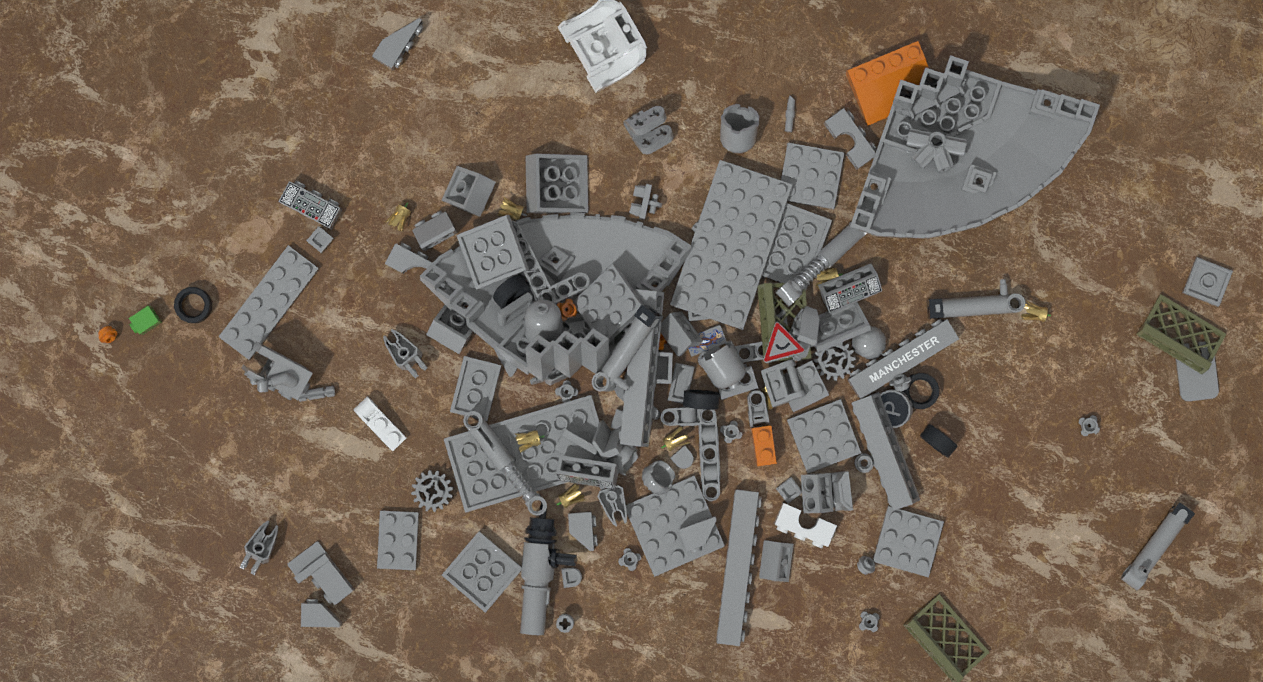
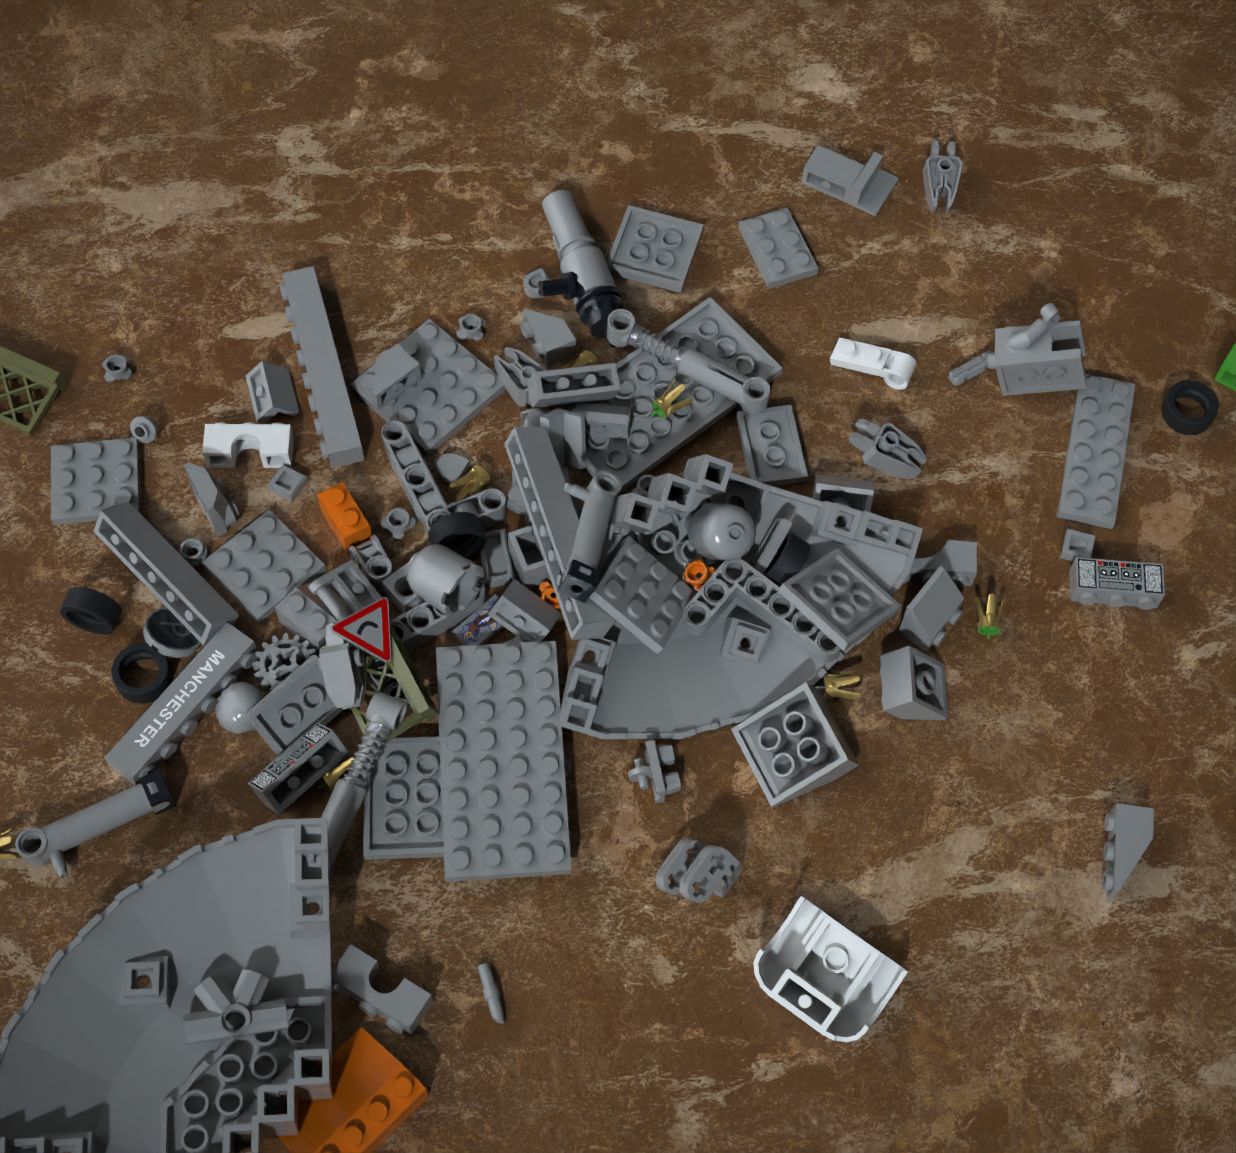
camera: 155 degrees right, 25 degrees down
(318, 615) = (831, 132): light grey slope -> none
(424, 488) = (764, 310): light grey gear -> none
(569, 619) = (521, 229): light grey bush -> none
(658, 477) = (474, 426): light grey hair -> none
(739, 128) = (562, 925): light grey cylinder -> none
(812, 174) = (420, 915): light grey plate -> none
(817, 493) = (245, 485): light grey brick -> none
(900, 382) = (168, 660): light grey plate -> none

